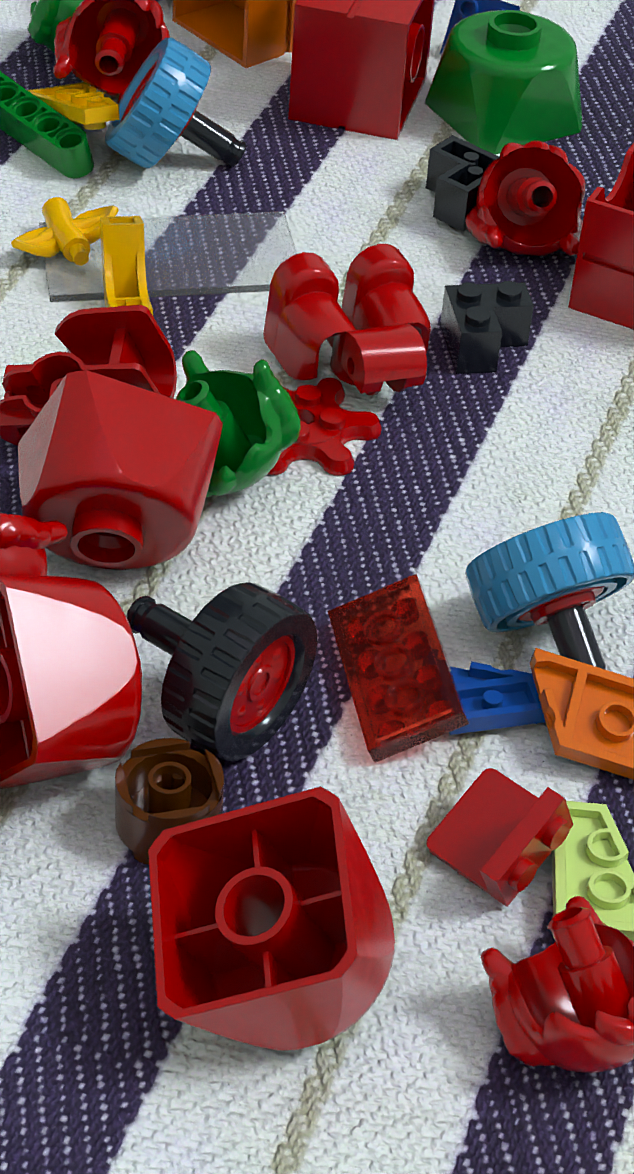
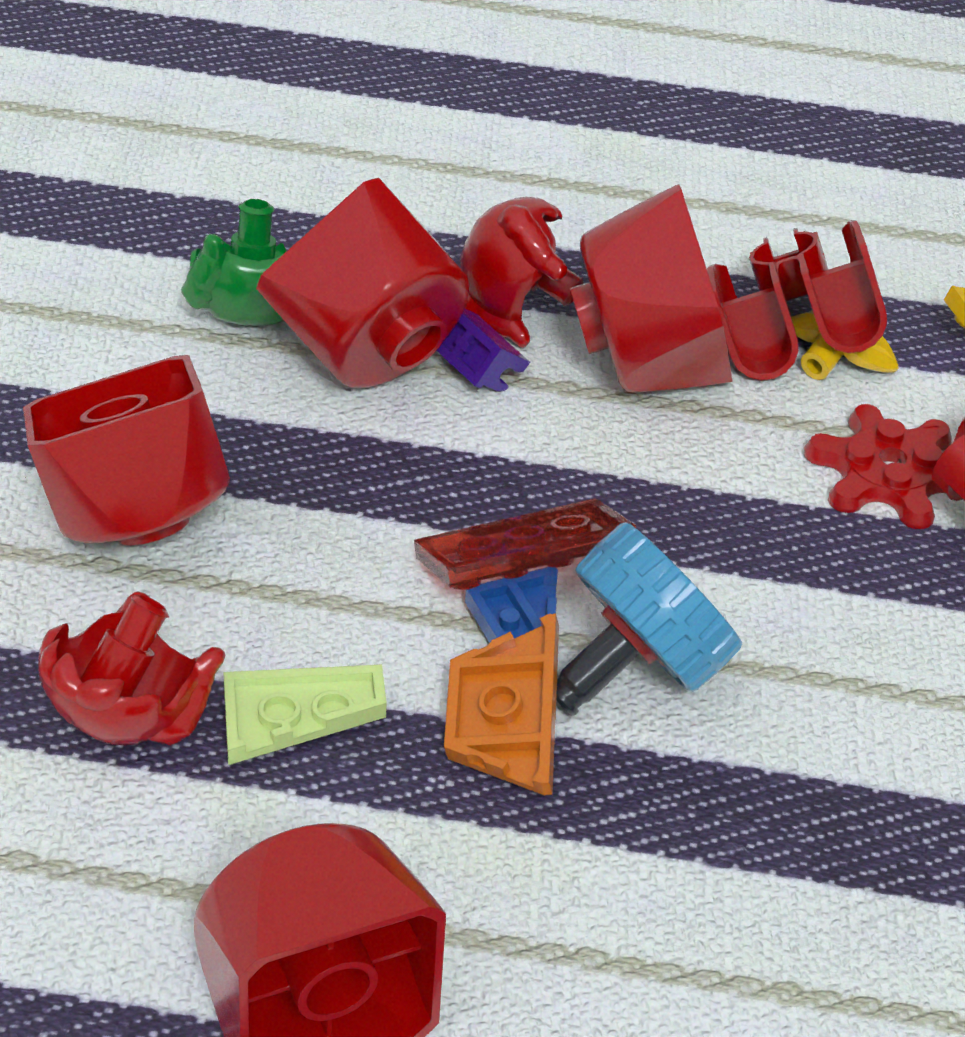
camera: 80 degrees right, 0 degrees up
(163, 789) = (302, 416): reddish brown brick -> none
(231, 667) = (441, 410): black wheel -> none
(255, 418) = (800, 386): green piece -> none
(500, 834) = (311, 630): red bracket -> none

